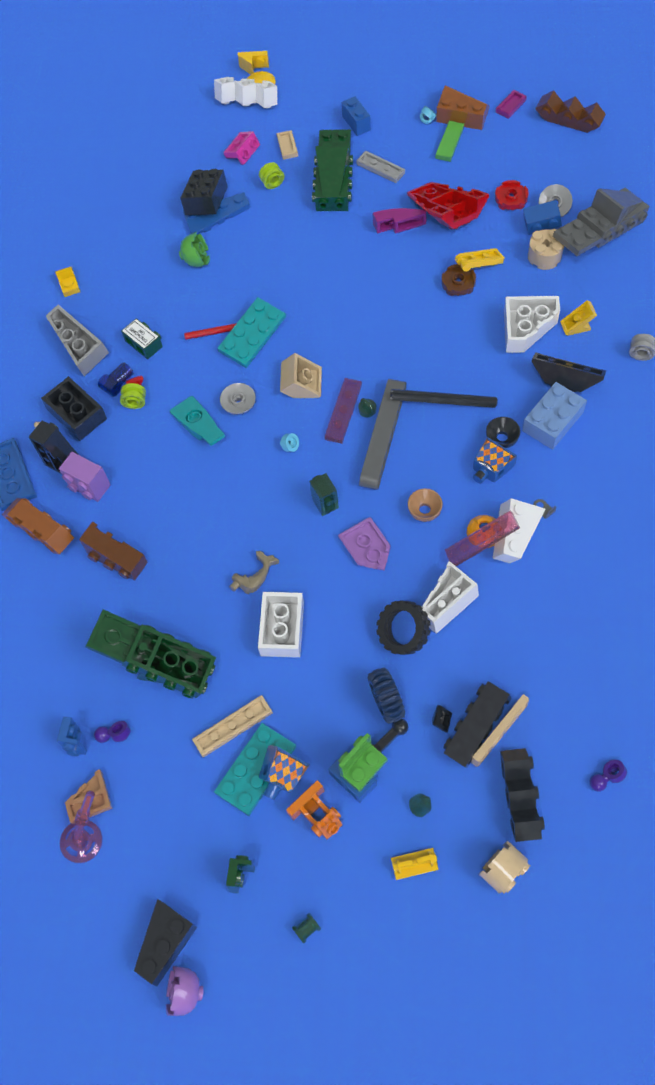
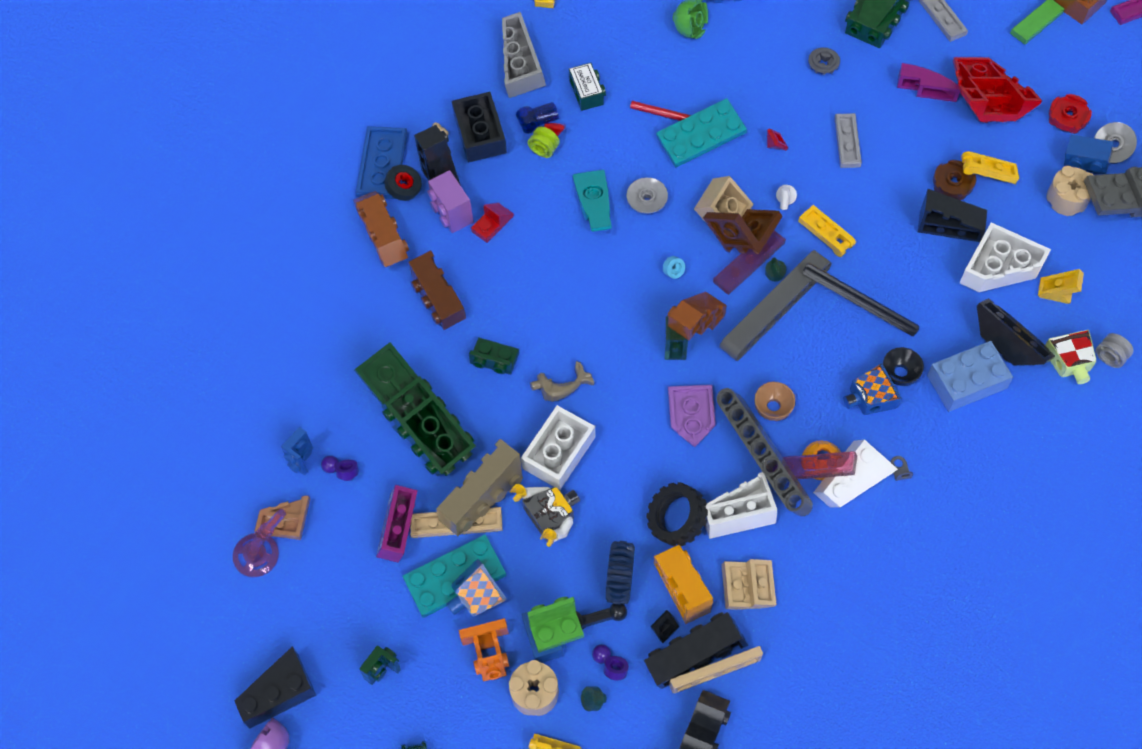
camera: 25 degrees right, 0 degrees up
(39, 488) = (402, 191): none -> black bush
(125, 477) = (492, 221): none -> slope
(186, 752) = (396, 523): none -> magenta brick
(187, 580) = (494, 356): none -> dark green bracket
(240, 688) = (481, 489): none -> dark tan wedge
(301, 677) = (548, 510): none -> torso
(311, 312) = (775, 140): none -> slope
(313, 232) = (826, 55): none -> dark grey gear
(328, 388) = (743, 232): none -> reddish brown bracket
(330, 469) = (696, 315): none -> dark orange brick
(343, 349) = (786, 195): none -> white plate
(364, 287) = (847, 140): none -> light grey tile
(365, 811) = (532, 702): none -> tan brick
(388, 360) = (827, 230): none -> yellow plate
(423, 771) = (615, 667): none -> dark purple plate
(438, 678) = (683, 583): none -> light orange wedge
(448, 549) = (770, 457): none -> dark grey beam
(473, 308) = (951, 217): none -> black wedge
(485, 652) = (748, 584): none -> tan slope
(617, 363) = (1073, 355): none -> torso

